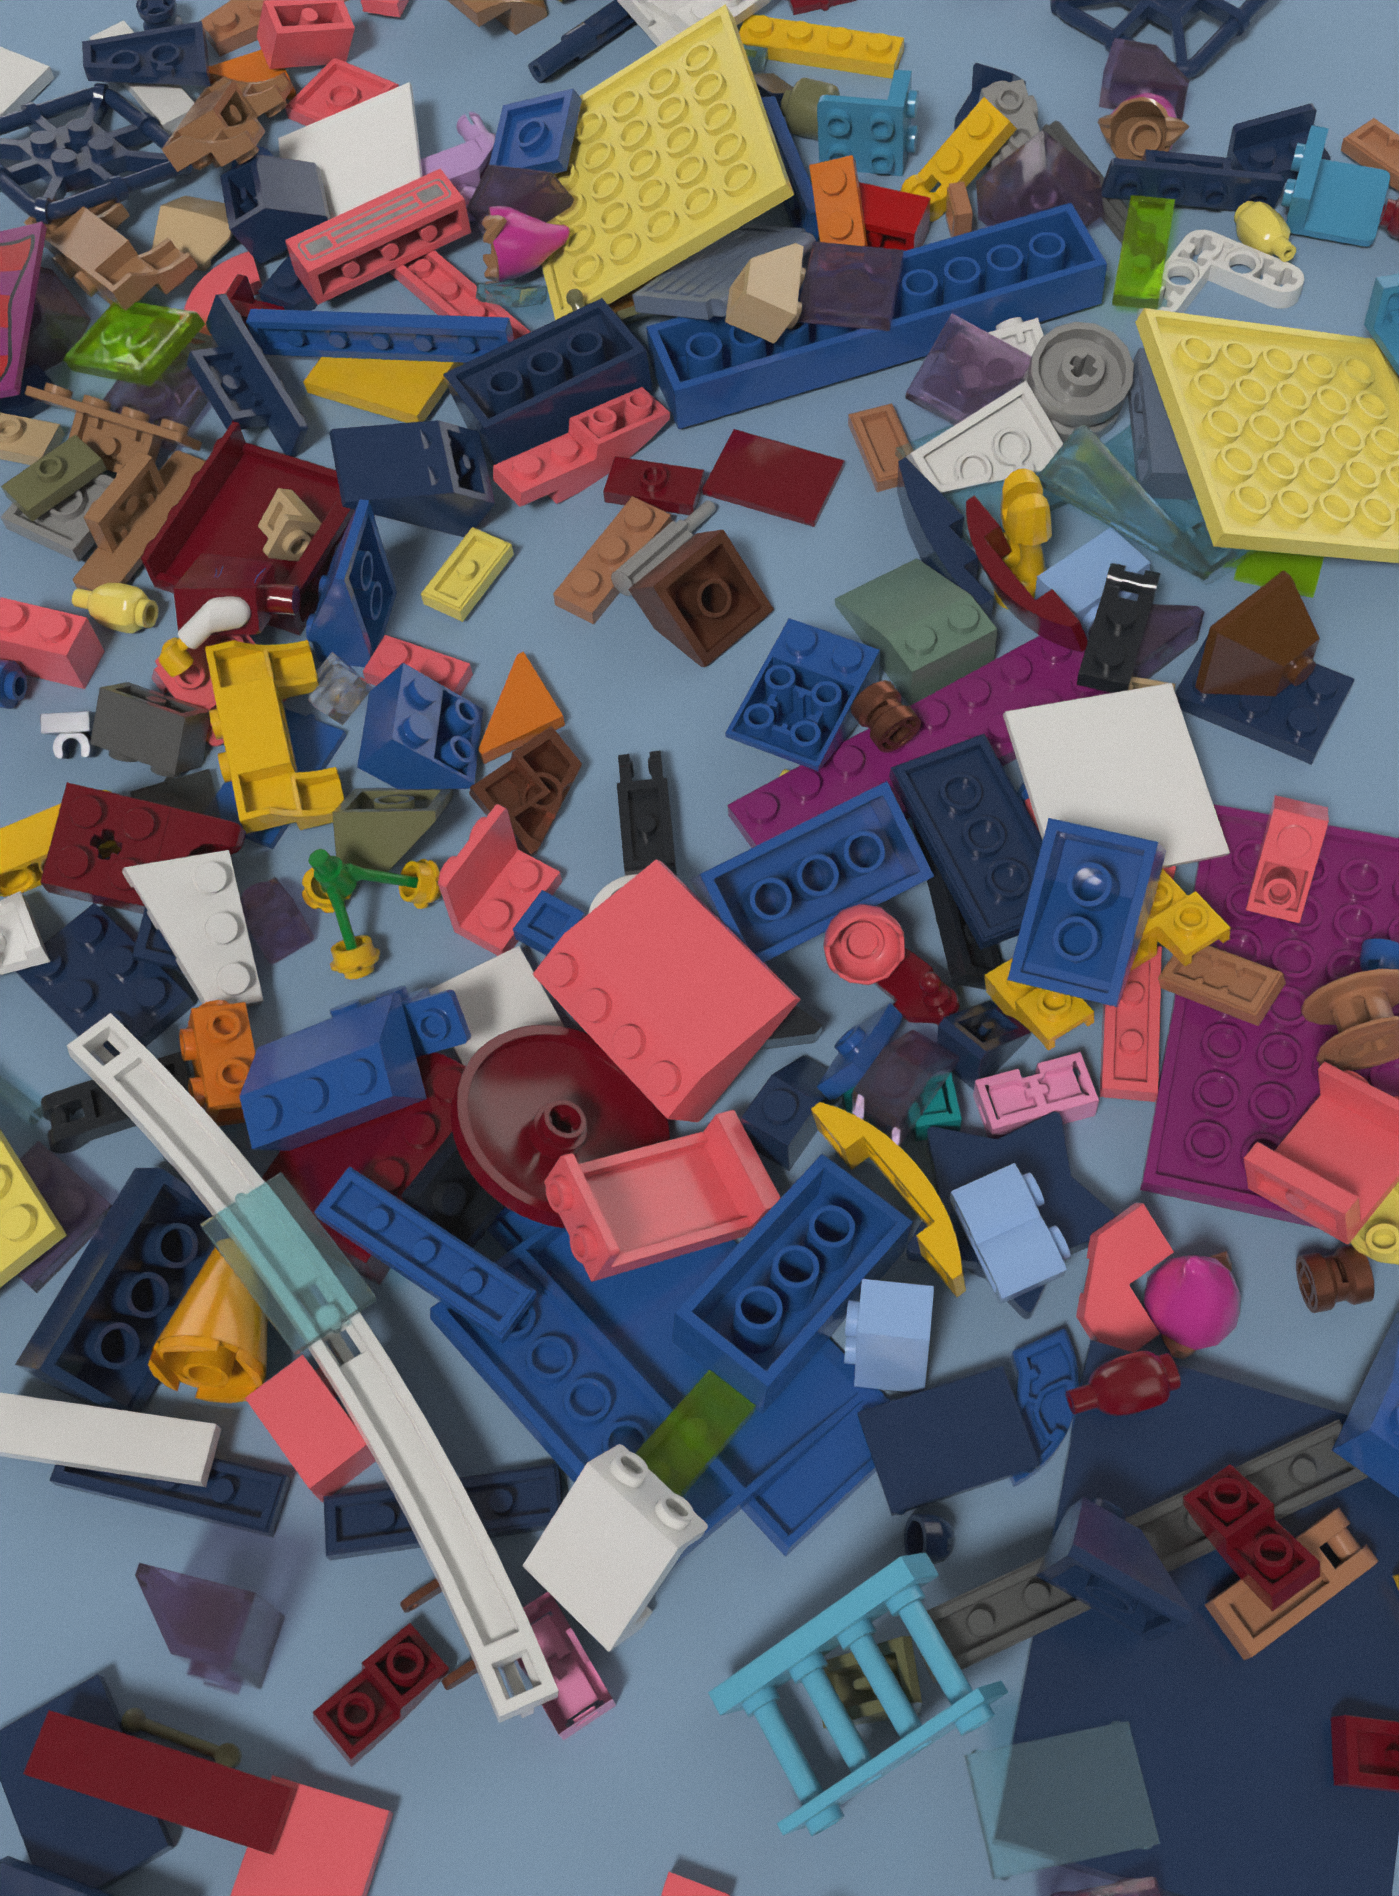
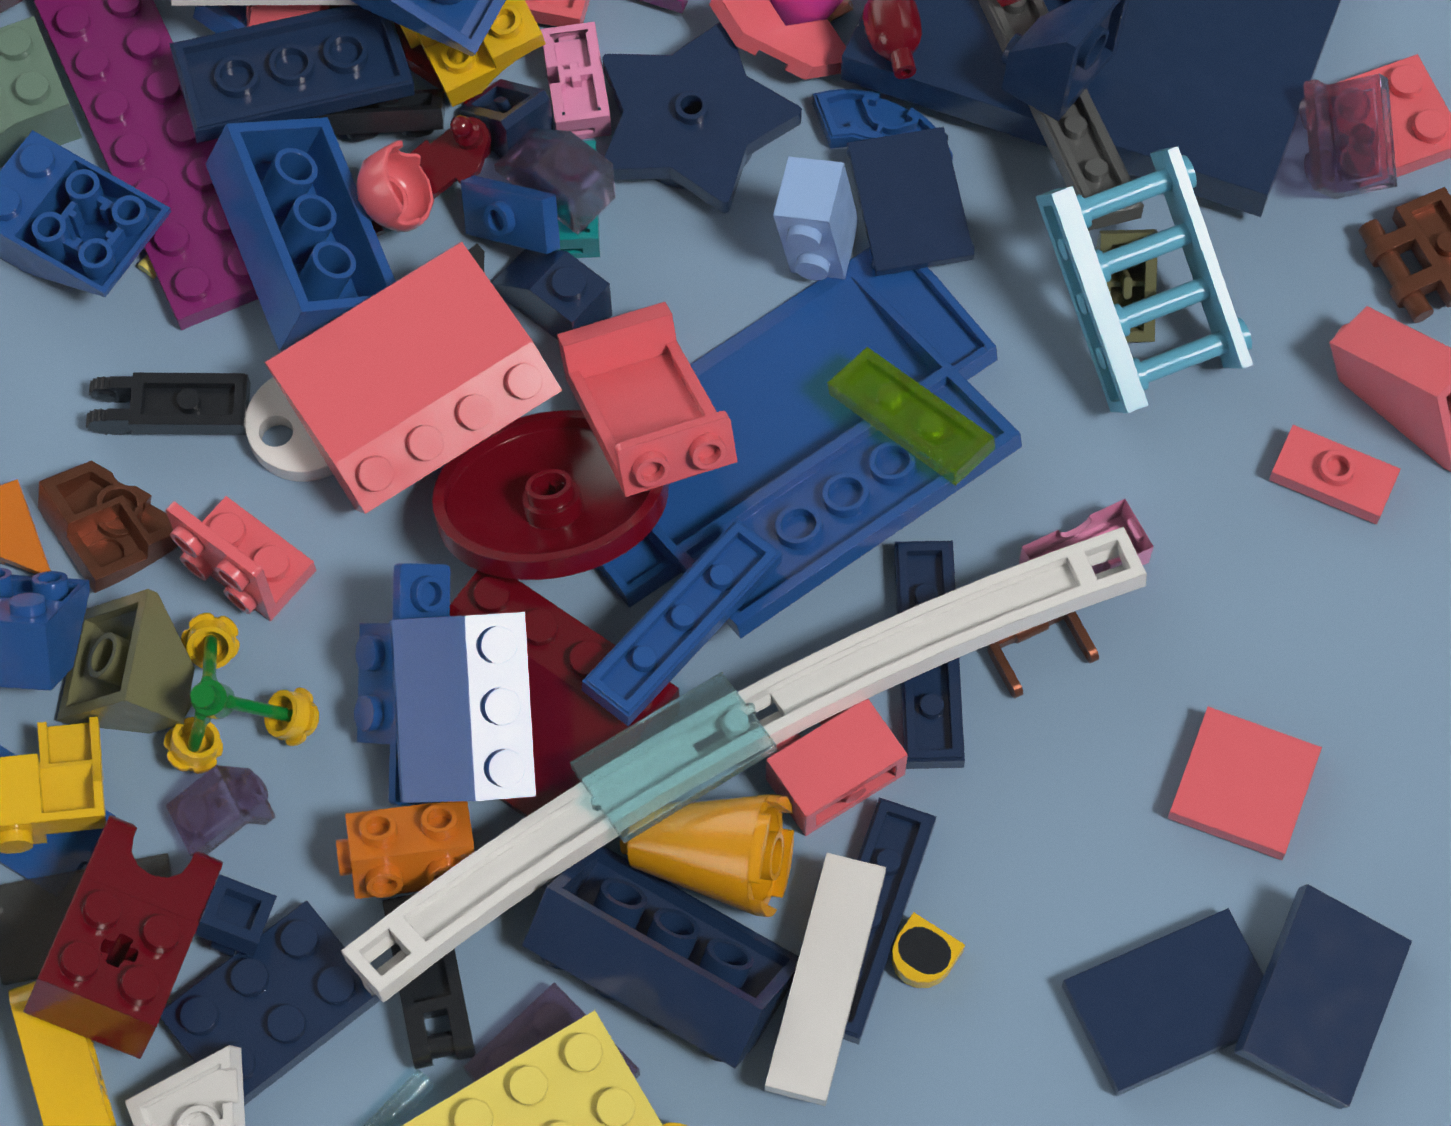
camera: 90 degrees left, 5 degrees up
(134, 1534) = (924, 953): none -> tile
(160, 1782) = (1174, 907): dark red slope -> none
(203, 922) = (227, 861): white wing -> none
(213, 1627) = (1039, 846): clear purple slope -> none
(225, 1754) = (1144, 864): olive hinge -> none
(381, 1695) = (1098, 716): dark red slope -> none
(452, 1196) = (605, 597): black bracket -> none
(499, 999) = (362, 563): white tile -> none
(546, 922) = (293, 509): blue plate -> none
(613, 1545) = (996, 469): white panel -> none
(790, 1282) = (750, 298): blue brick -> none
(858, 1140) = (736, 157): yellow slope -> none
(888, 720) = (130, 134): copper wheel -> none
(928, 1535) = (1007, 235): dark blue hinge -> none
(1009, 1233) = (733, 101): light blue brick -> none
(1061, 1800) = (1238, 142): clear light blue piece -> none

